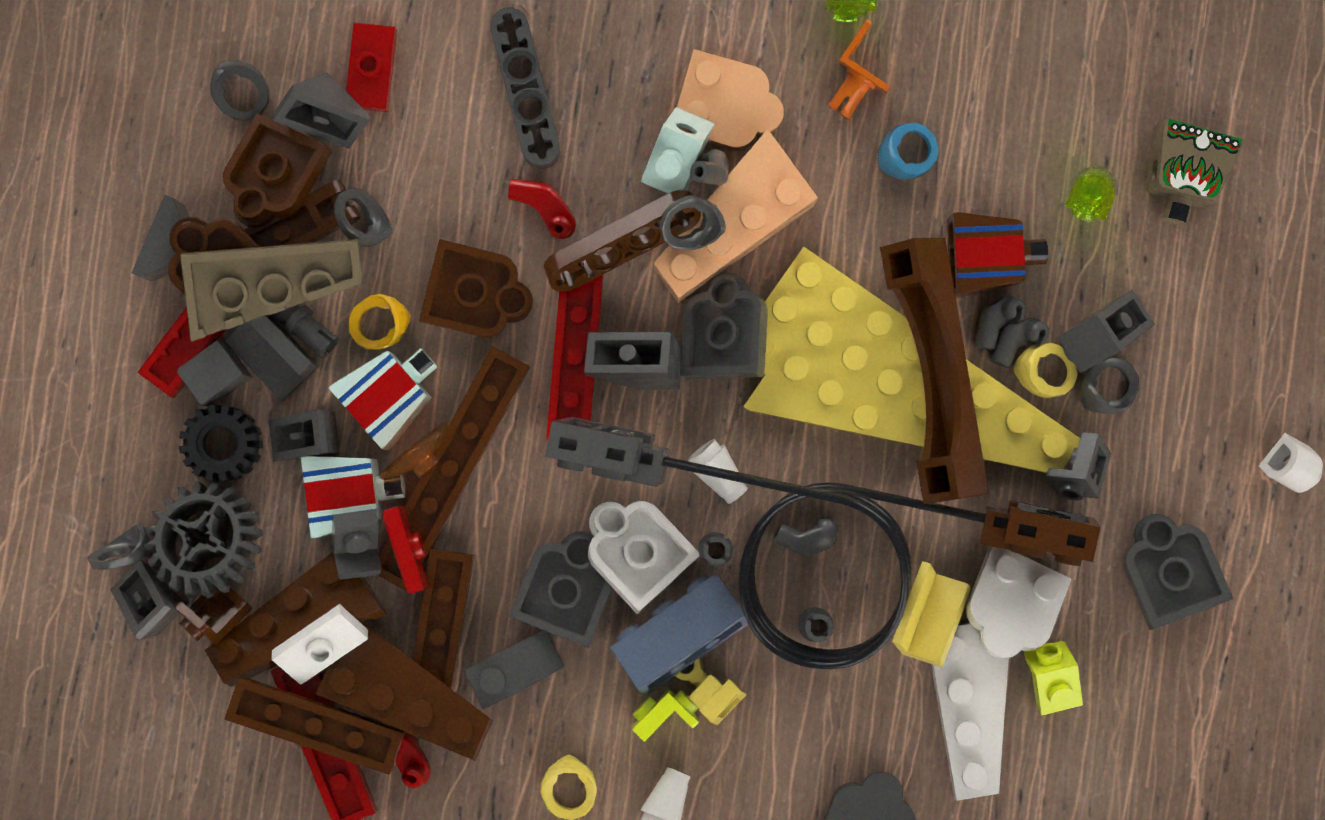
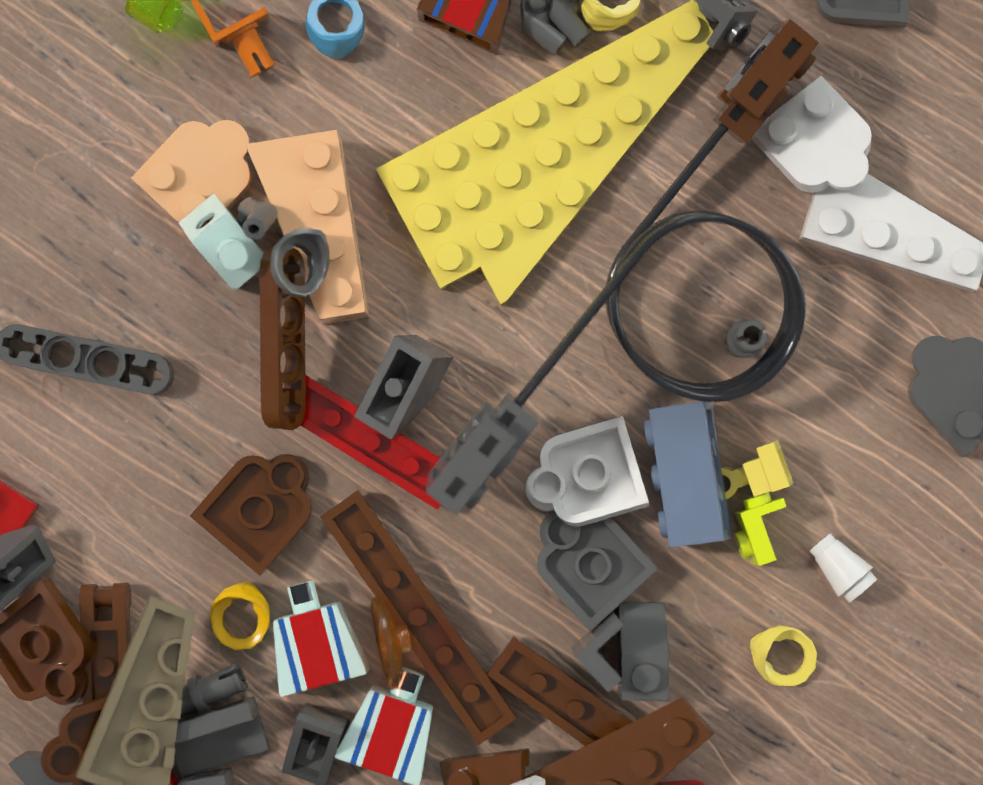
camera: 65 degrees left, 0 degrees up
(356, 544) = (446, 745): dark grey bracket -> none
(378, 222) = (145, 568): dark grey piece -> none
(407, 549) = (476, 696): red plate -> none
(486, 630) = (591, 658): none -> dark grey panel
(547, 203) = (209, 393): red arm -> none
(715, 560) = (630, 388): dark grey pin -> none
(718, 456) = (537, 351): white cone -> none
(724, 331) = (420, 285): dark grey plate -> none
(809, 542) = (662, 305): dark grey arm -> none
(931, 616) = (792, 224): light yellow panel -> none
(952, 450) = (473, 71): reddish brown arch -> none
(1054, 677) = (906, 139): neon yellow bracket -> none

